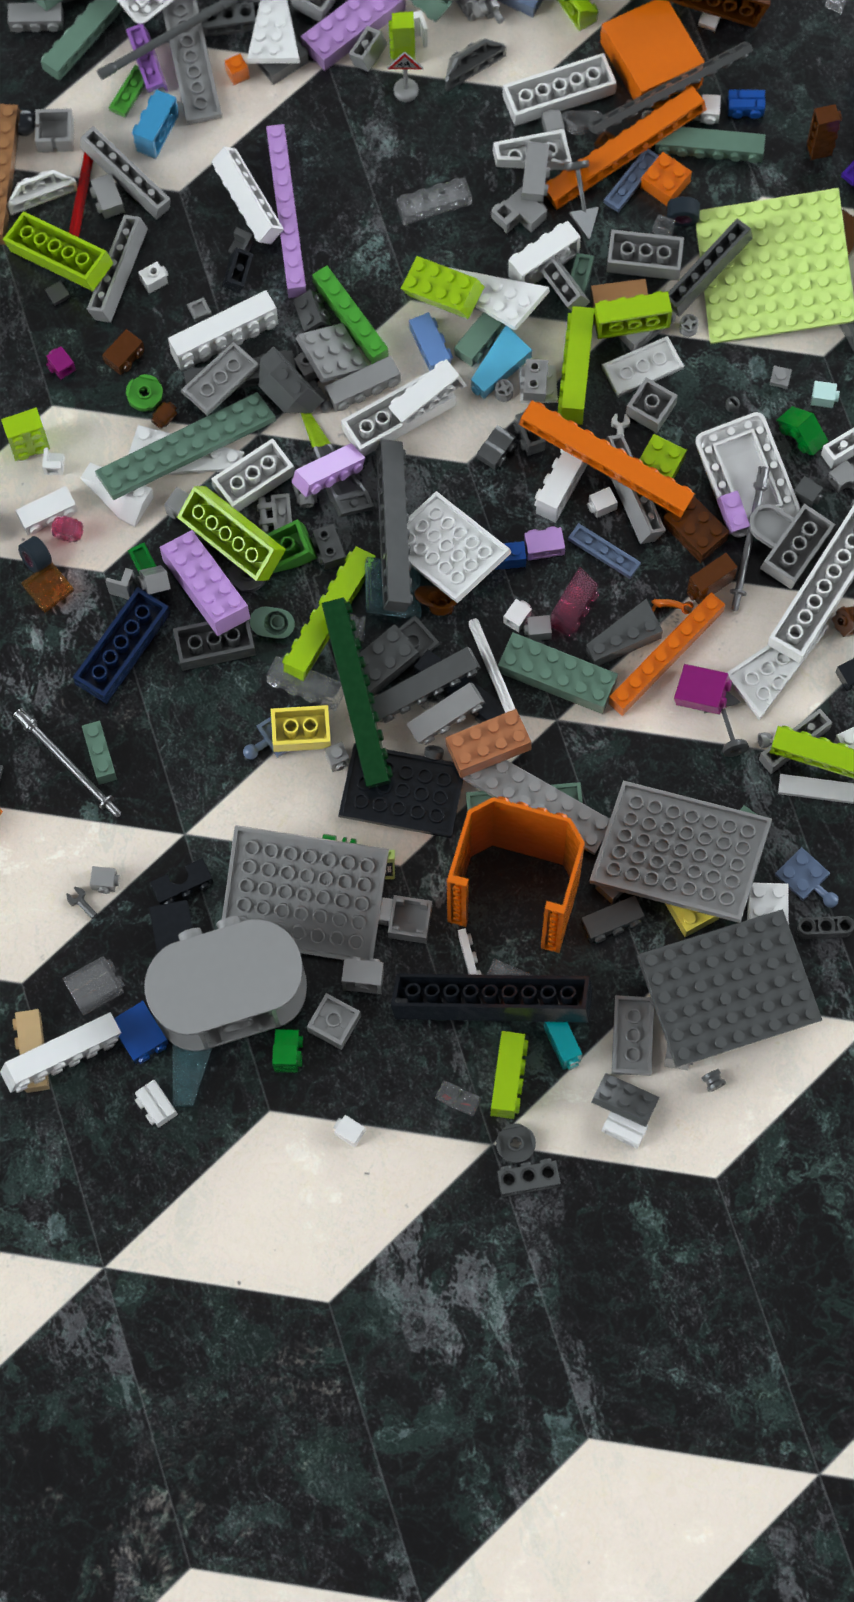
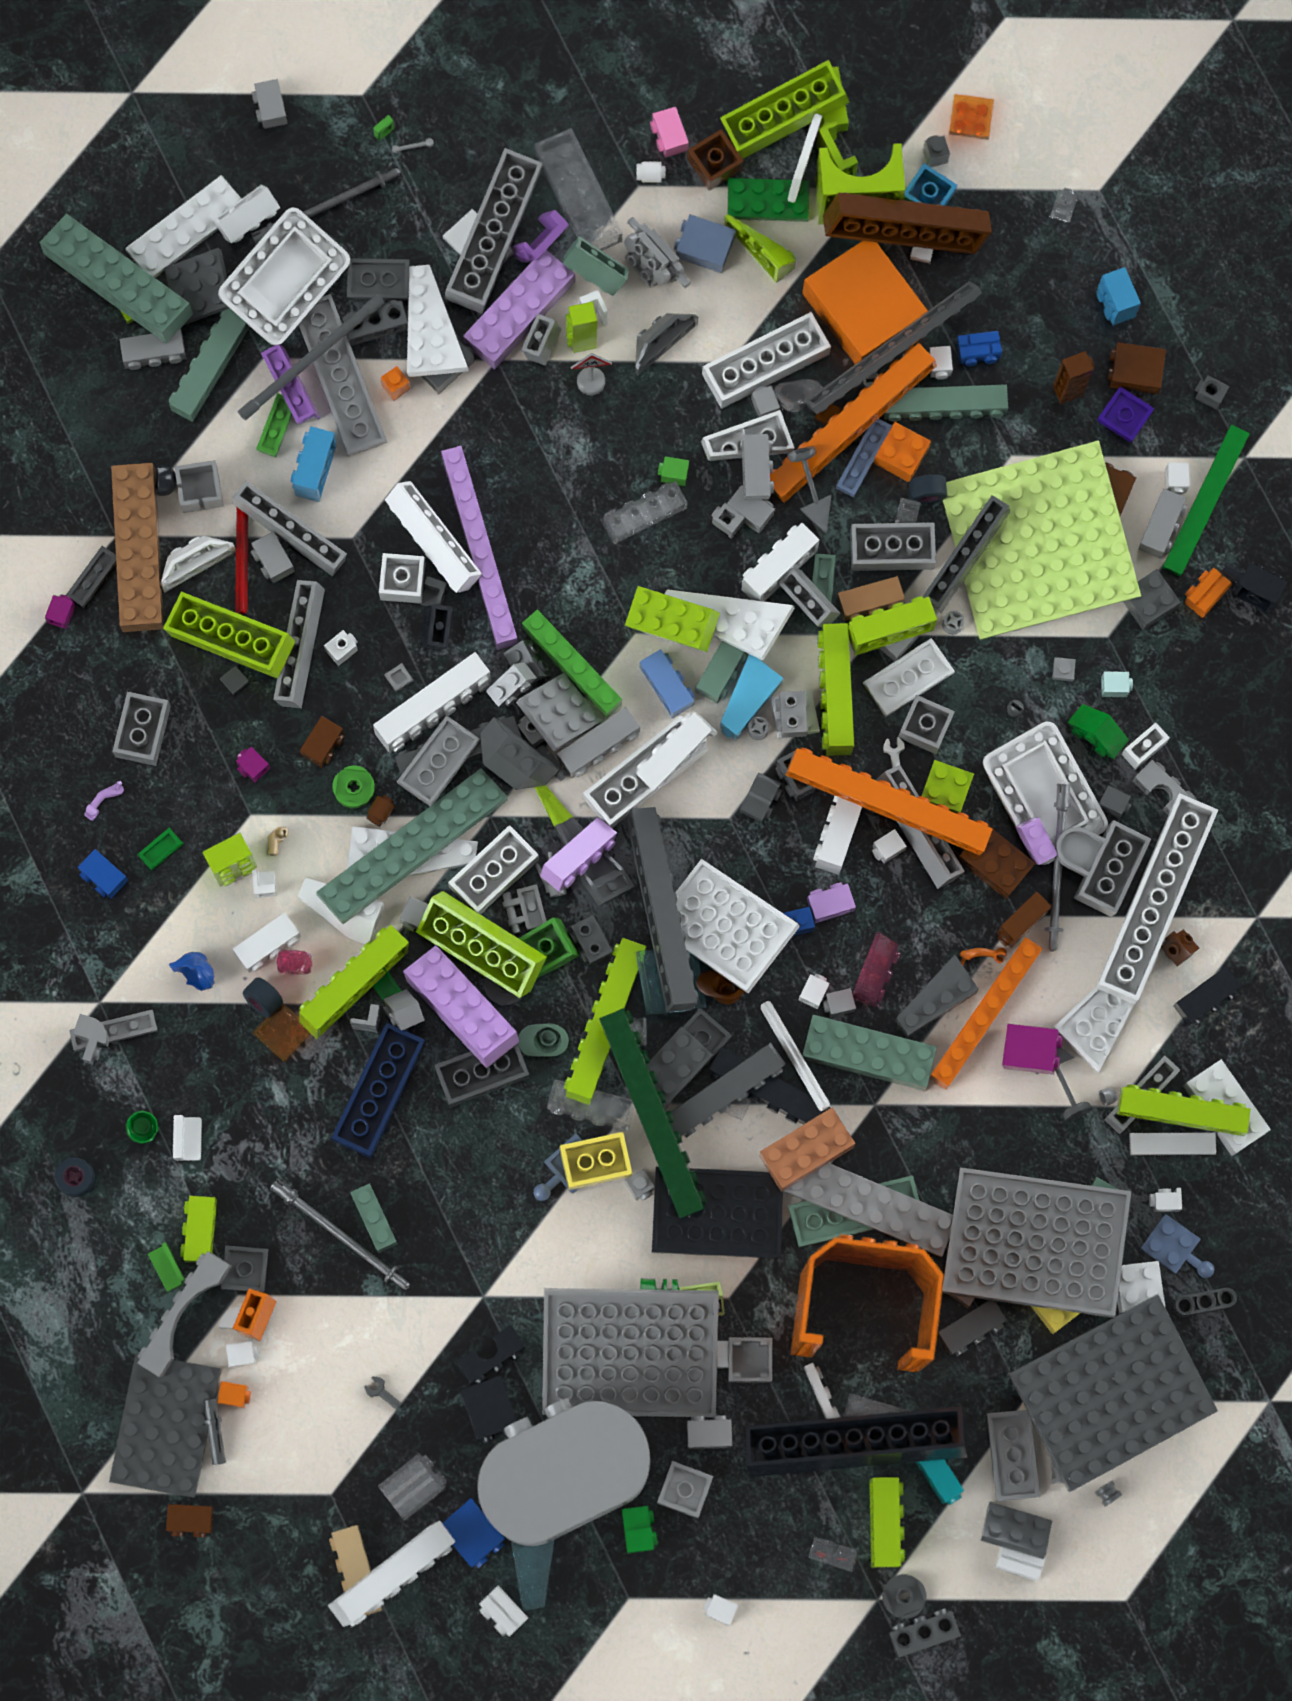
camera: 15 degrees left, 5 degrees up
(70, 426) = (275, 838): none -> tan arm
(104, 879) = (404, 1364): light grey brick -> none
(114, 550) = (353, 981): none -> lime brick
(215, 226) = (402, 578): none -> white brick
(293, 323) = (511, 684): none -> light grey brick
(434, 752) = (746, 1164): dark grey tile -> none
(446, 713) = (753, 1119): light grey brick -> none
(465, 168) = (674, 470): none -> bright green brick
(604, 551) = (898, 902): sand blue plate -> none
(803, 835) = (1166, 1200): none -> white brick

